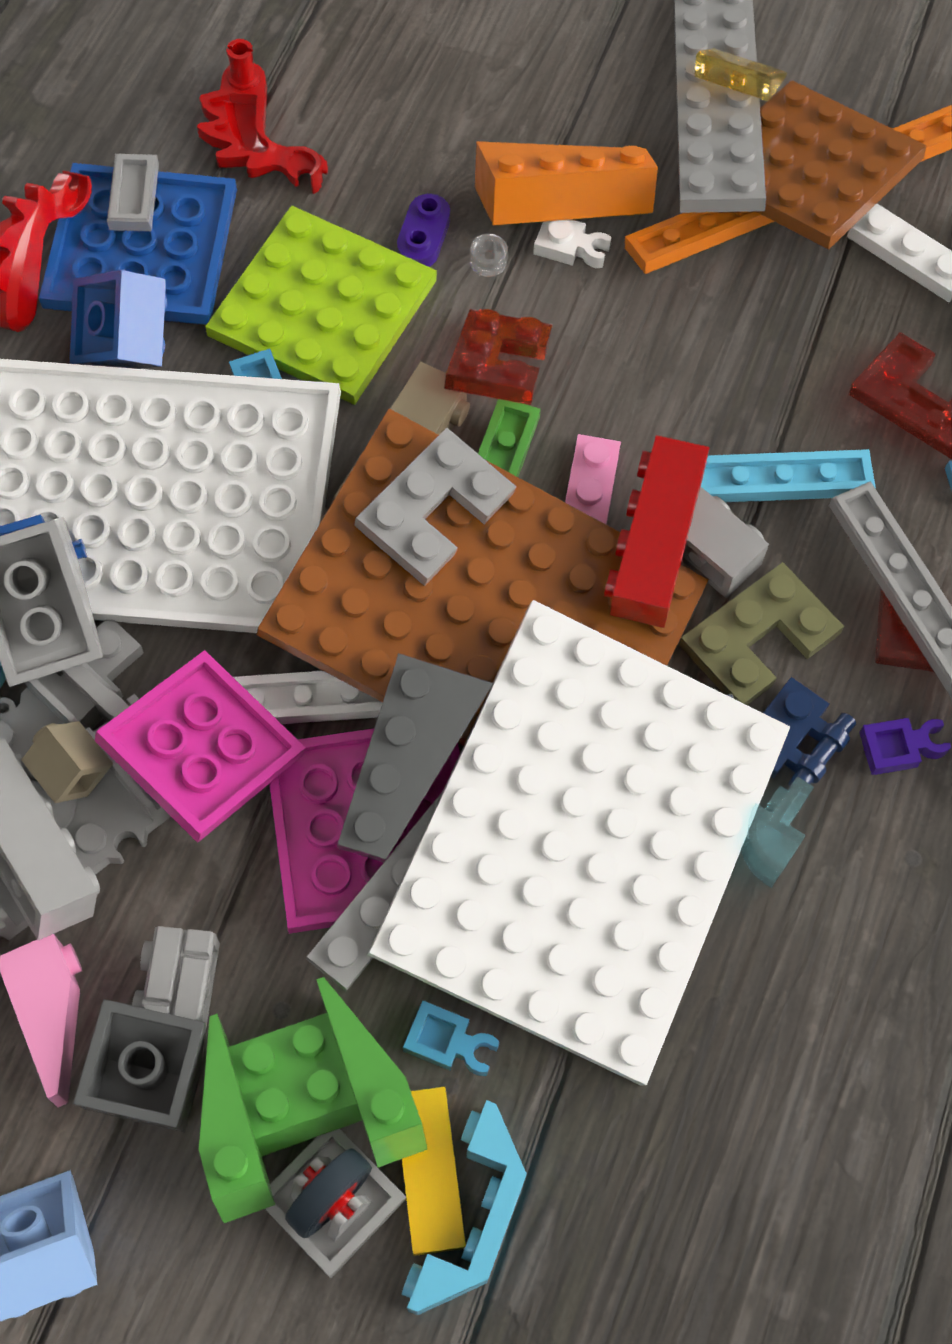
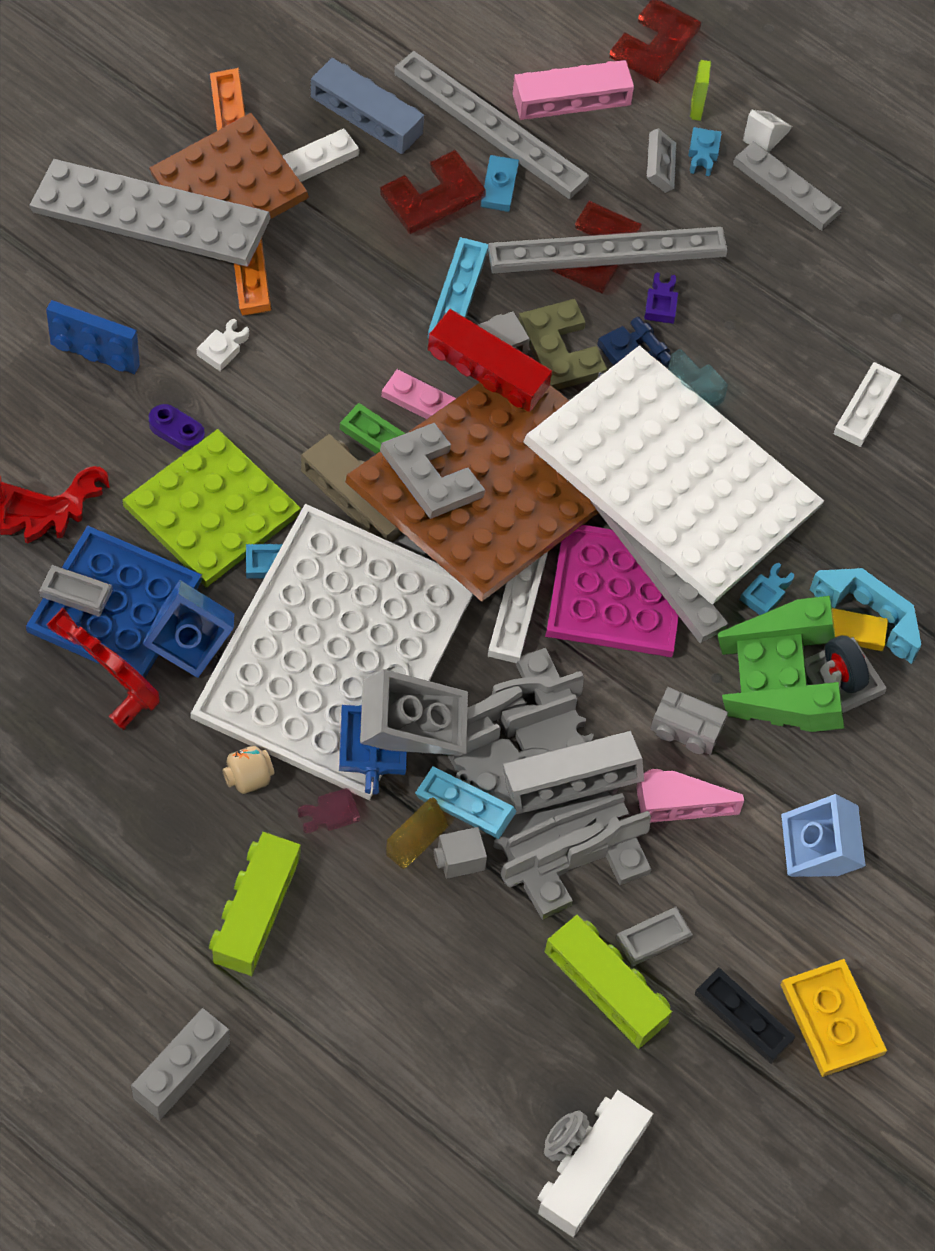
camera: 75 degrees left, 5 degrees down
(66, 761) = (530, 733): dark tan brick -> none
(142, 1066) = (740, 745): dark grey slope -> none
(200, 745) = (547, 653): dark pink plate -> none
(411, 741) = (598, 541): dark grey wedge -> none
(477, 362) = (292, 415): clear red plate -> none
(493, 244) = (207, 391): clear bush -> none
(496, 81) = (93, 337): none -> blue plate
(563, 181) = (182, 331): orange wedge -> none
(738, 73) = (152, 188): clear yellow slope -> none
(858, 1106) = (867, 404): none -> white plate

